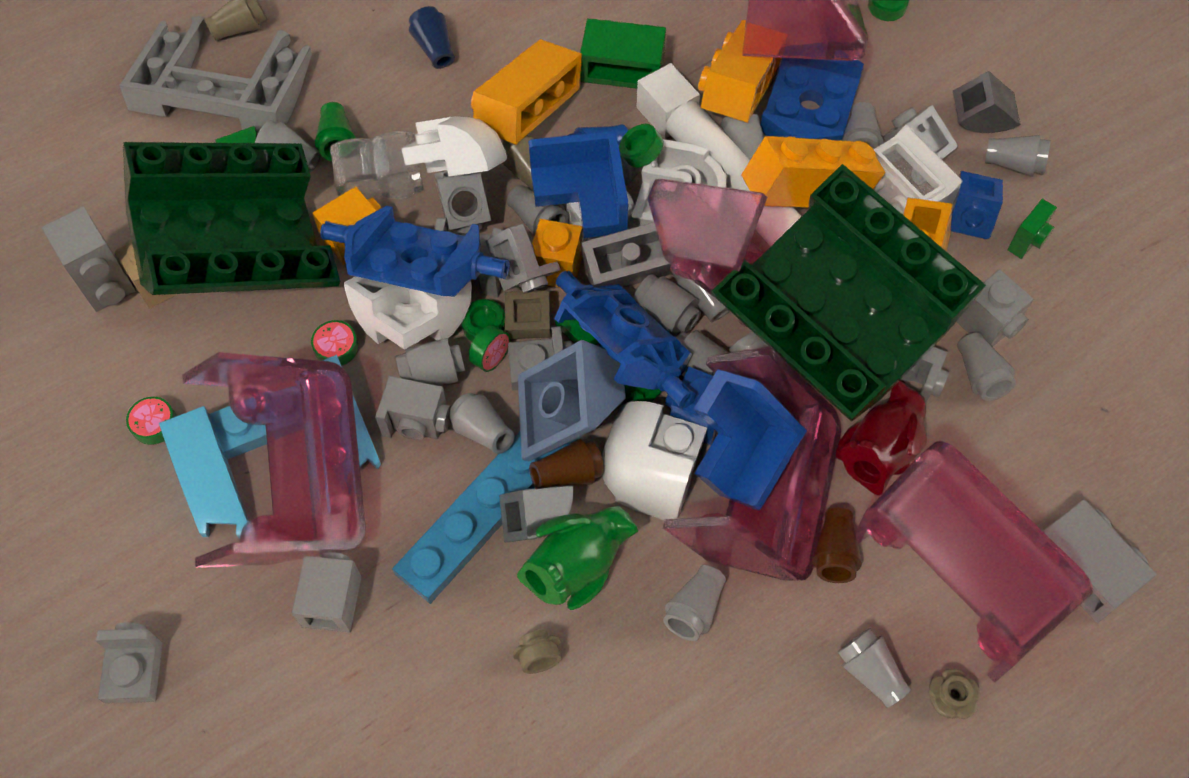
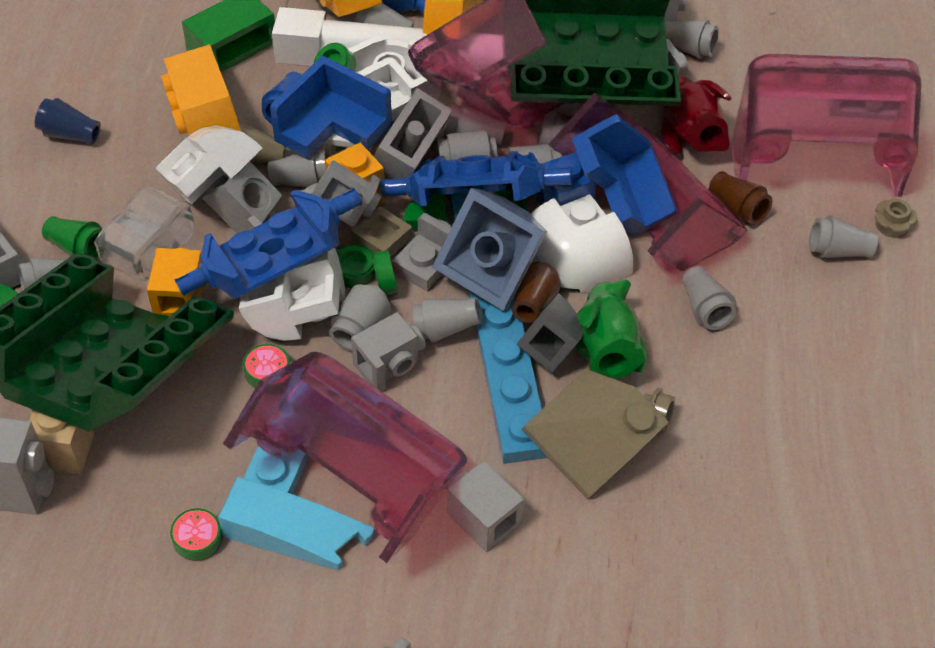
camera: 50 degrees left, 10 degrees down
(465, 617) = (594, 429): none -> dark tan slope

